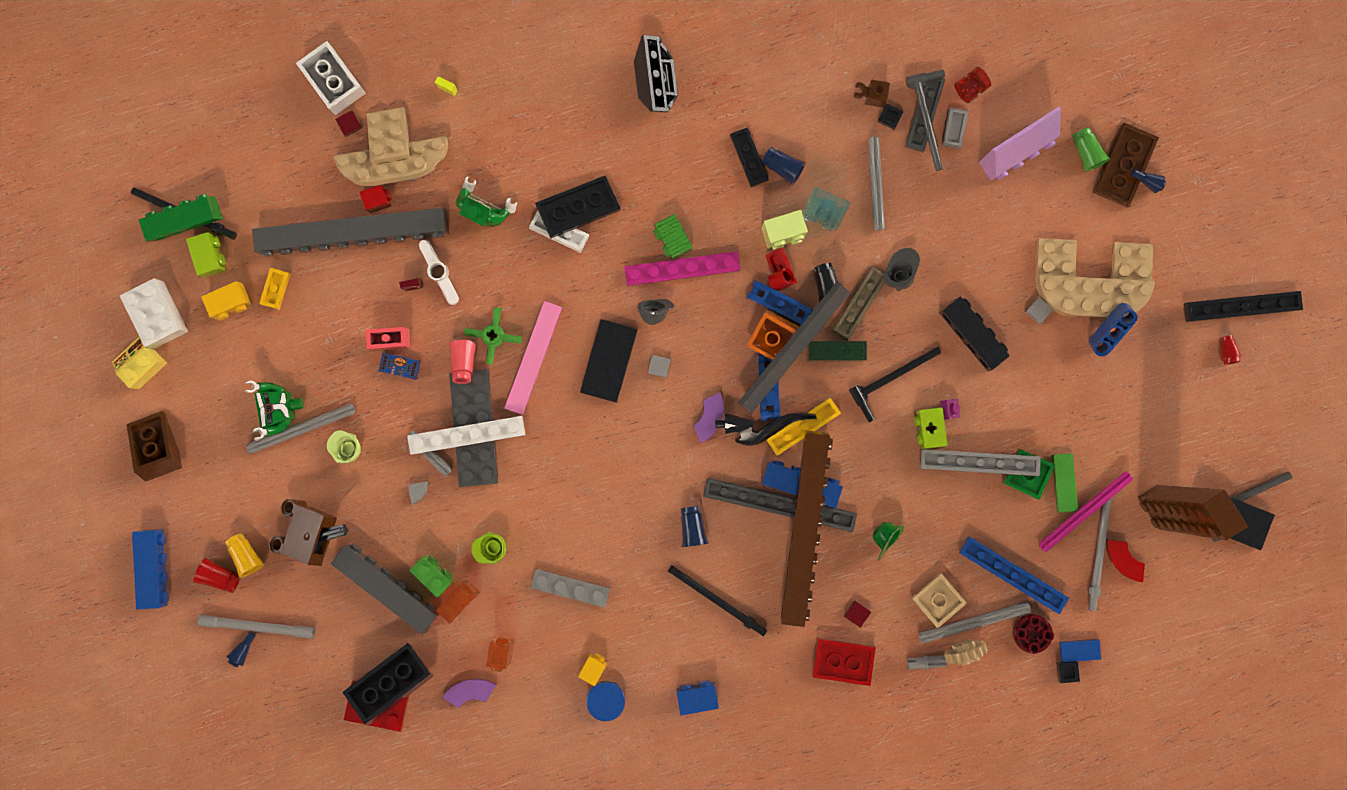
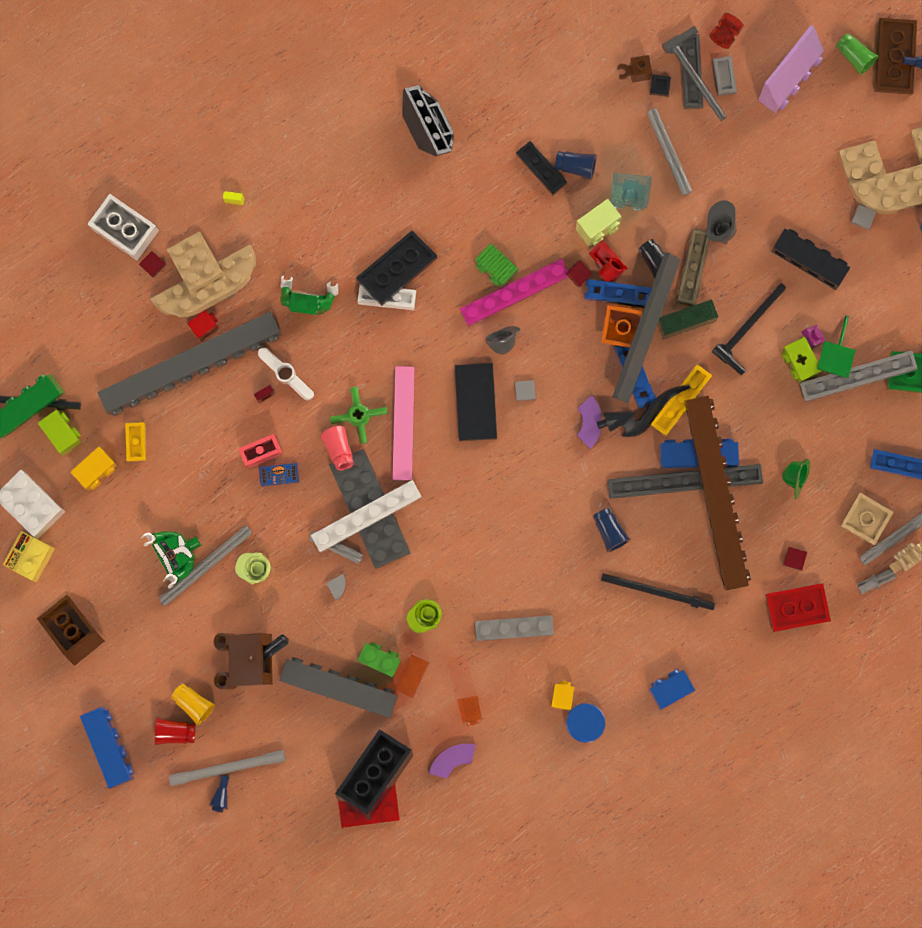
camera: 15 degrees left, 5 degrees down
(748, 271) = (578, 273): none -> dark red tile
(965, 438) = (837, 358): none -> green piece

